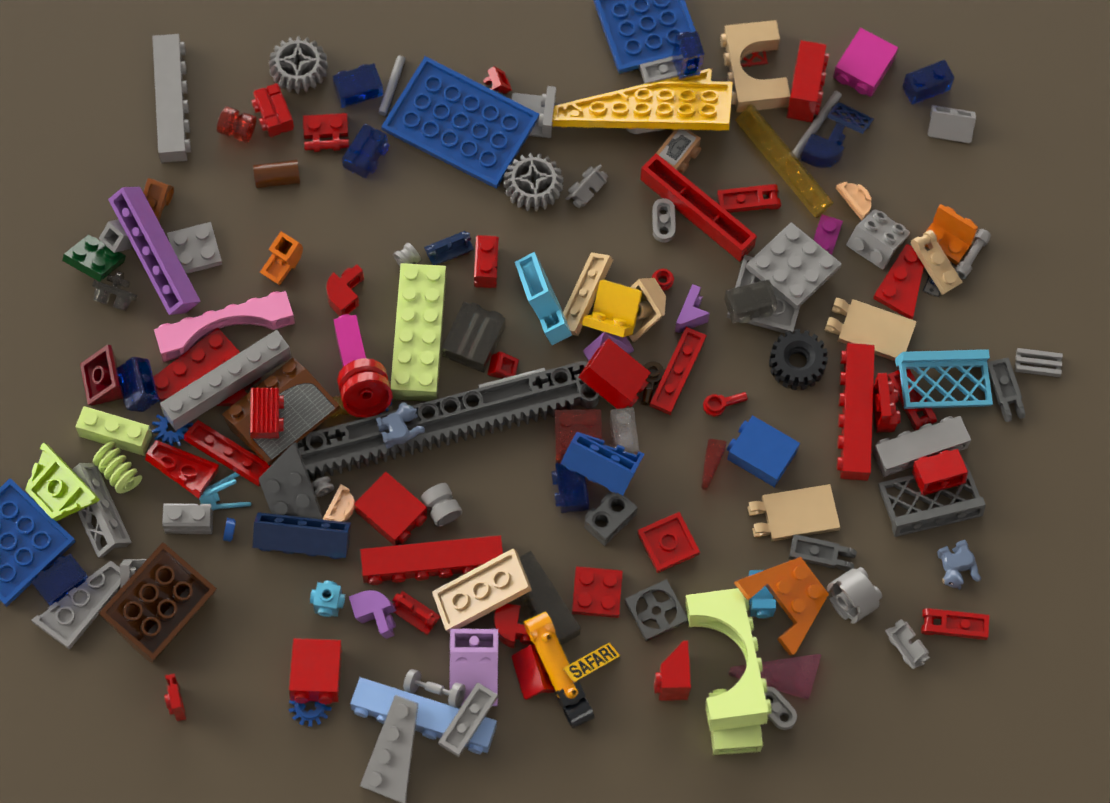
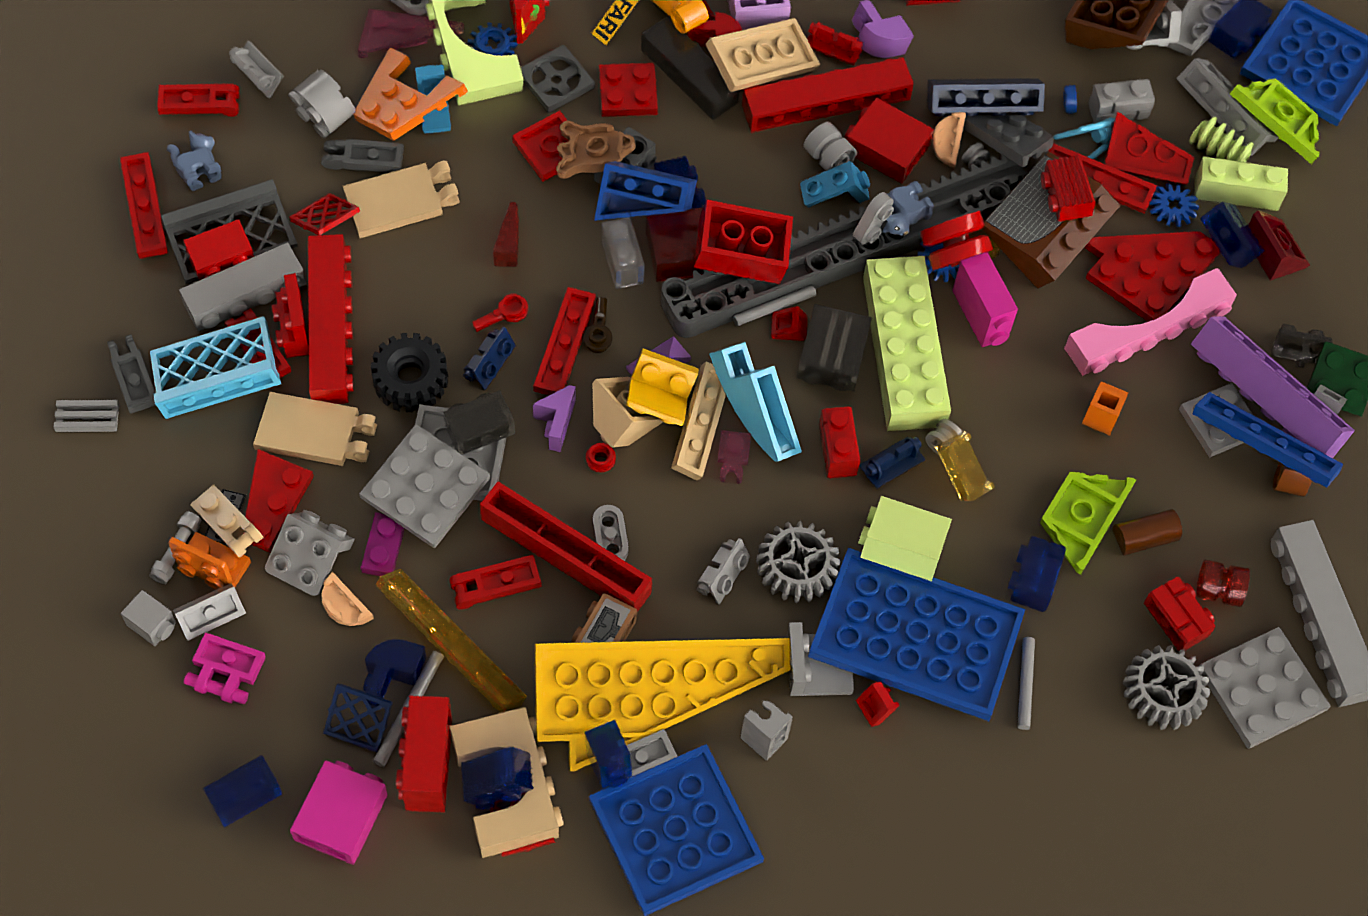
camera: 170 degrees right, 5 degrees down
(173, 207) = (1267, 439): none -> blue plate
(225, 380) = (1127, 242): light grey brick -> none
(229, 60) = (1264, 687): none -> light grey plate
(318, 190) = (1084, 513): none -> lime wing
(325, 126) = (1098, 609): red plate -> none
(327, 606) = (937, 38): medium azure brick -> none
(340, 292) = (1018, 379): red brick -> none
(357, 85) = (1074, 663): clear blue brick -> none
(398, 227) = (964, 467): none -> clear yellow hinge
(426, 409) = (875, 214): none -> light grey plate
(442, 471) = (835, 182): none -> dark azure bracket
(455, 182) = (904, 537): none -> yellowish green brick
(533, 401) = (743, 242): none -> red brick
(564, 273) = (733, 452): none -> clear pink plate
(578, 63) = (766, 735): none -> light grey hinge
(615, 375) = (646, 307): red brick -> none
(636, 520) = (591, 148): none -> medium nougat tile
(711, 645) = (498, 35): none -> blue gear
(741, 359) = (495, 351): none -> dark blue hinge
(761, 60) = (496, 777): none -> clear blue brick
(762, 450) = (446, 257): blue brick -> none
(866, 511) = (325, 224): none -> red window
(936, 170) = (227, 659): none -> dark pink plate
(951, 124) = (205, 739): light grey panel -> none
(957, 201) = (209, 611): none -> light grey plate
(990, 203) = (149, 618): none -> light grey brick
(999, 531) = (143, 205): none -> red plate

